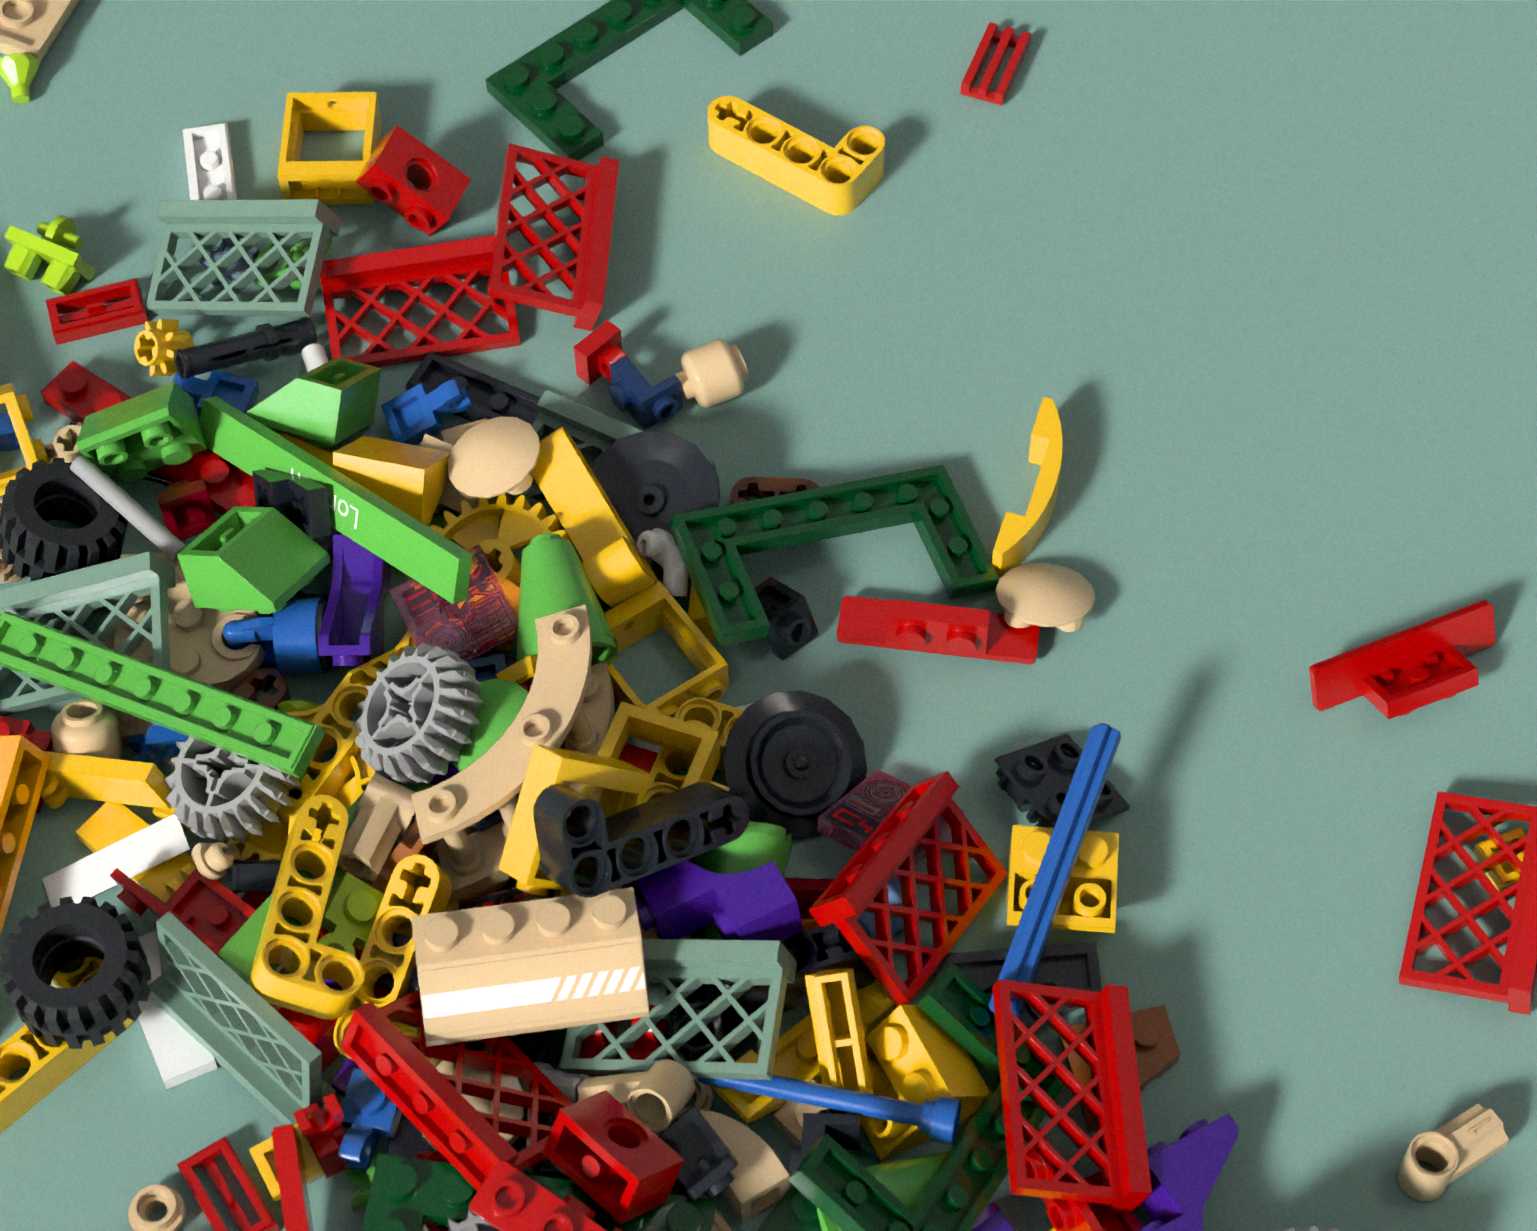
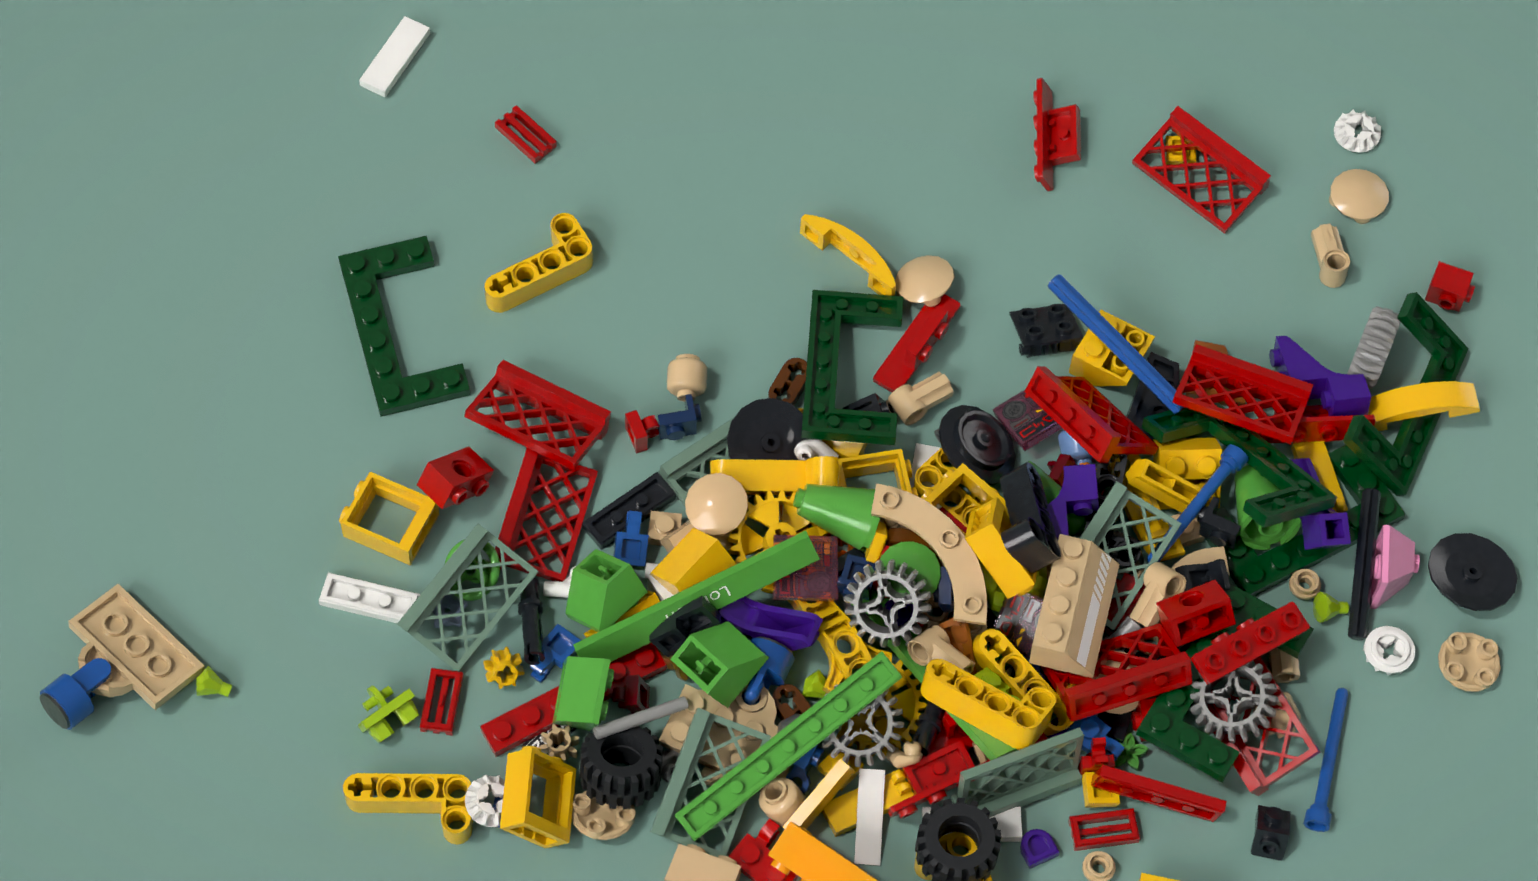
camera: 70 degrees left, 5 degrees up
(159, 1114) = (1038, 847): none -> dark purple tile
(832, 660) = (914, 401): none -> tan piece

